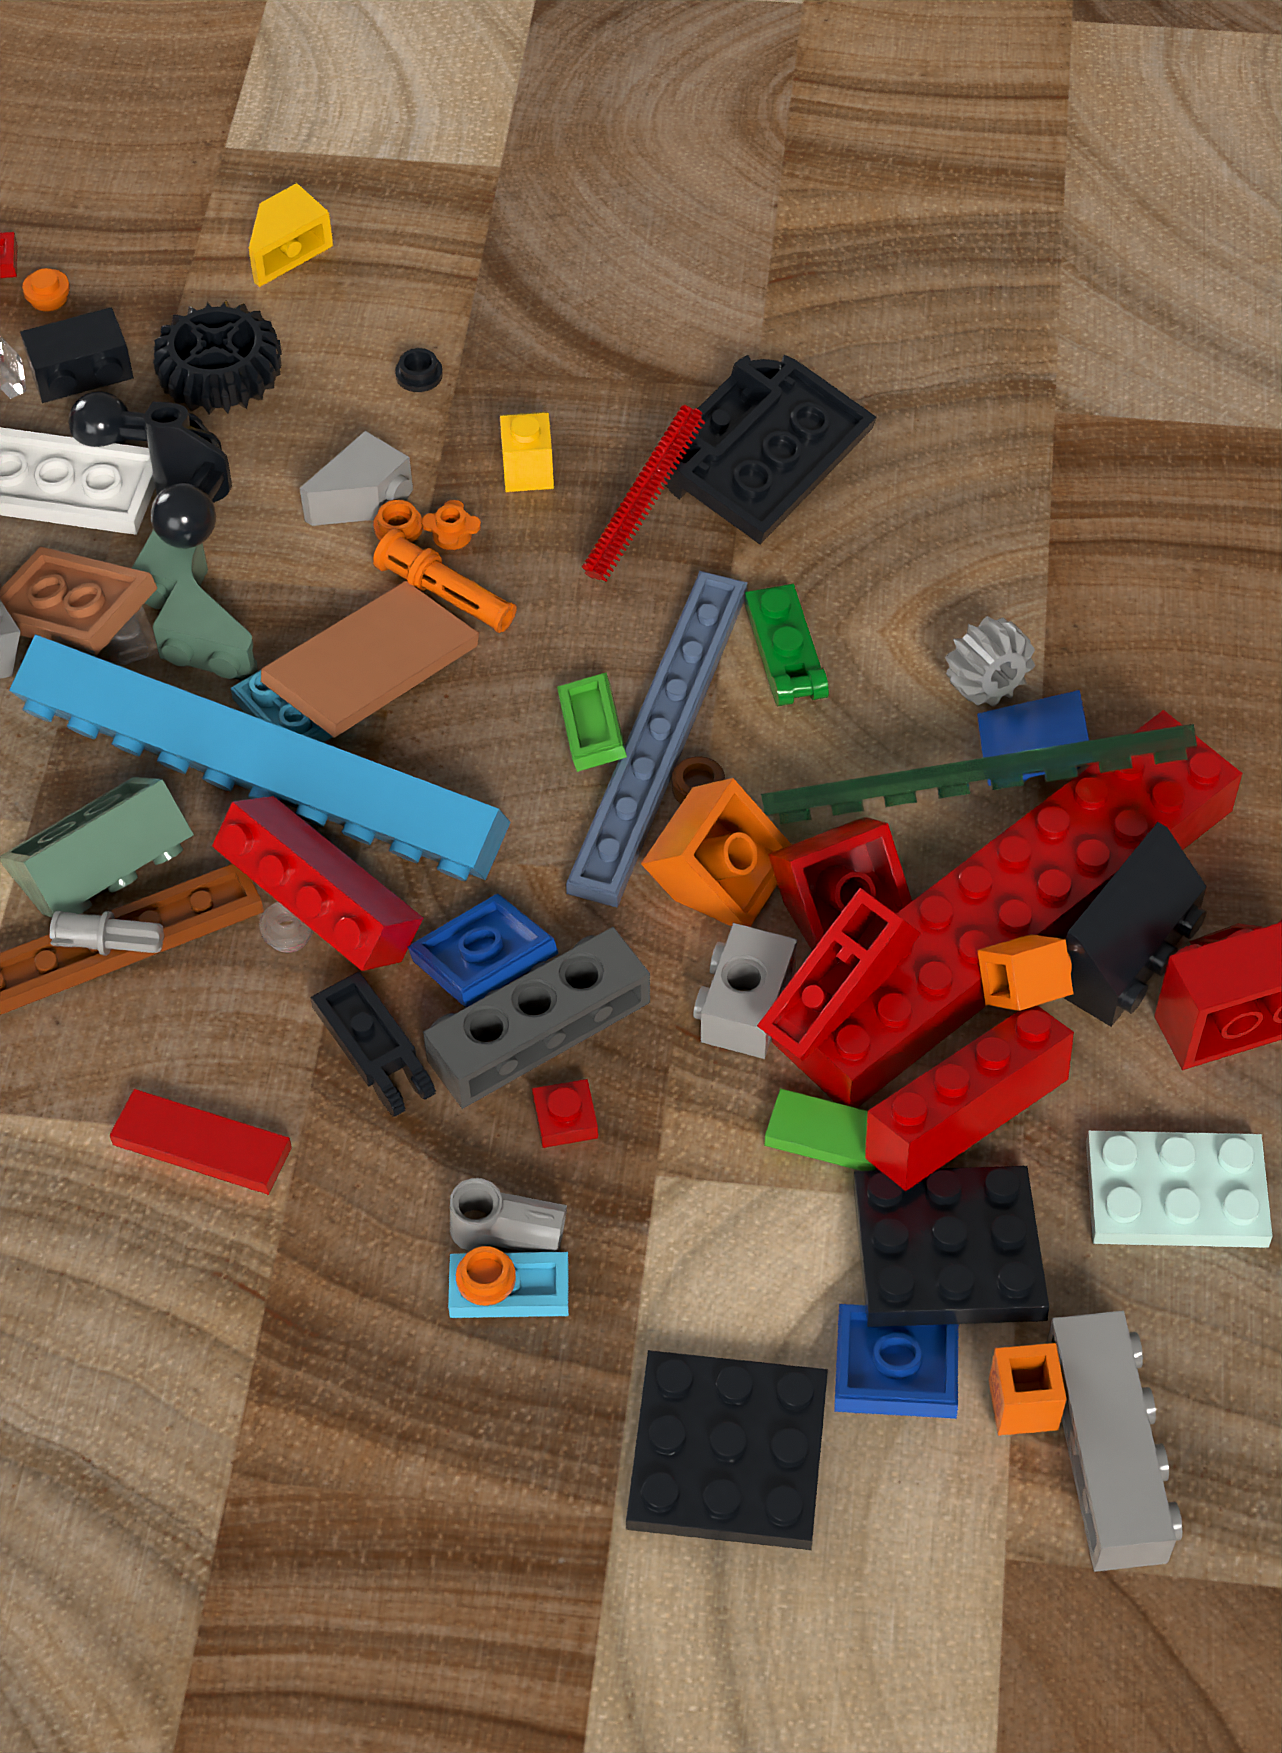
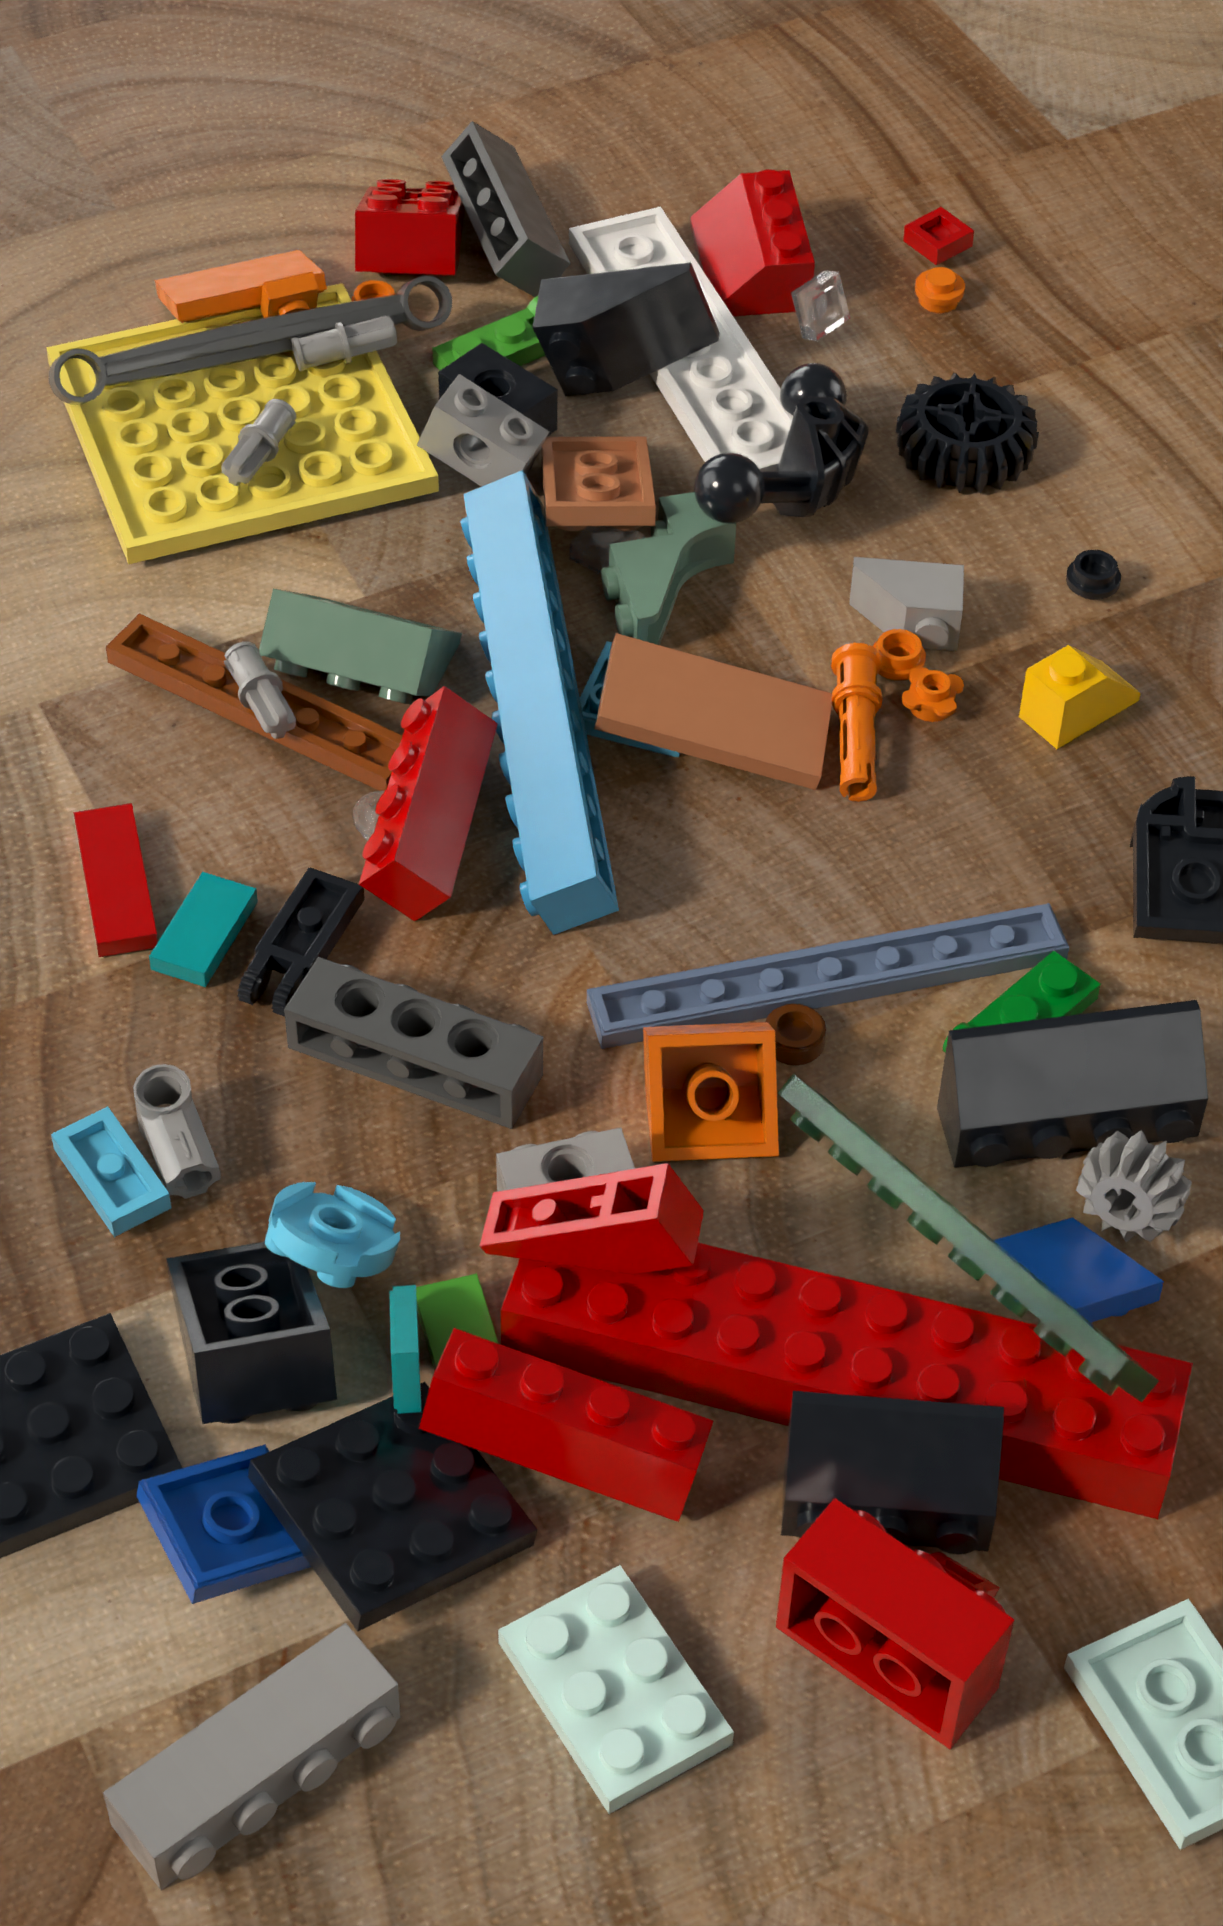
camera: 55 degrees right, 5 degrees down
(77, 355) = (878, 344): black brick -> none
(287, 233) = (1154, 398): yellow slope -> none
(304, 1105) = (203, 929): none -> teal tile
(482, 950) = (456, 962): blue plate -> none
(485, 1276) = (91, 1137): orange plate -> none
(565, 1113) = (332, 1122): red plate -> none
(591, 722) = (789, 912): bright green tile -> none
(642, 492) = (1092, 802): red axle -> none
(687, 1158) = (332, 1234): none -> medium azure plate
(731, 1258) = (251, 1333): none -> black slope
(829, 868) = (761, 1194): red slope -> none
(835, 1161) = (405, 1349): none -> teal tile
(886, 647) = (1072, 1083): none -> black slope
(1025, 972) = (739, 1393): orange brick -> none
(1027, 1389) = (251, 1636): orange brick -> none

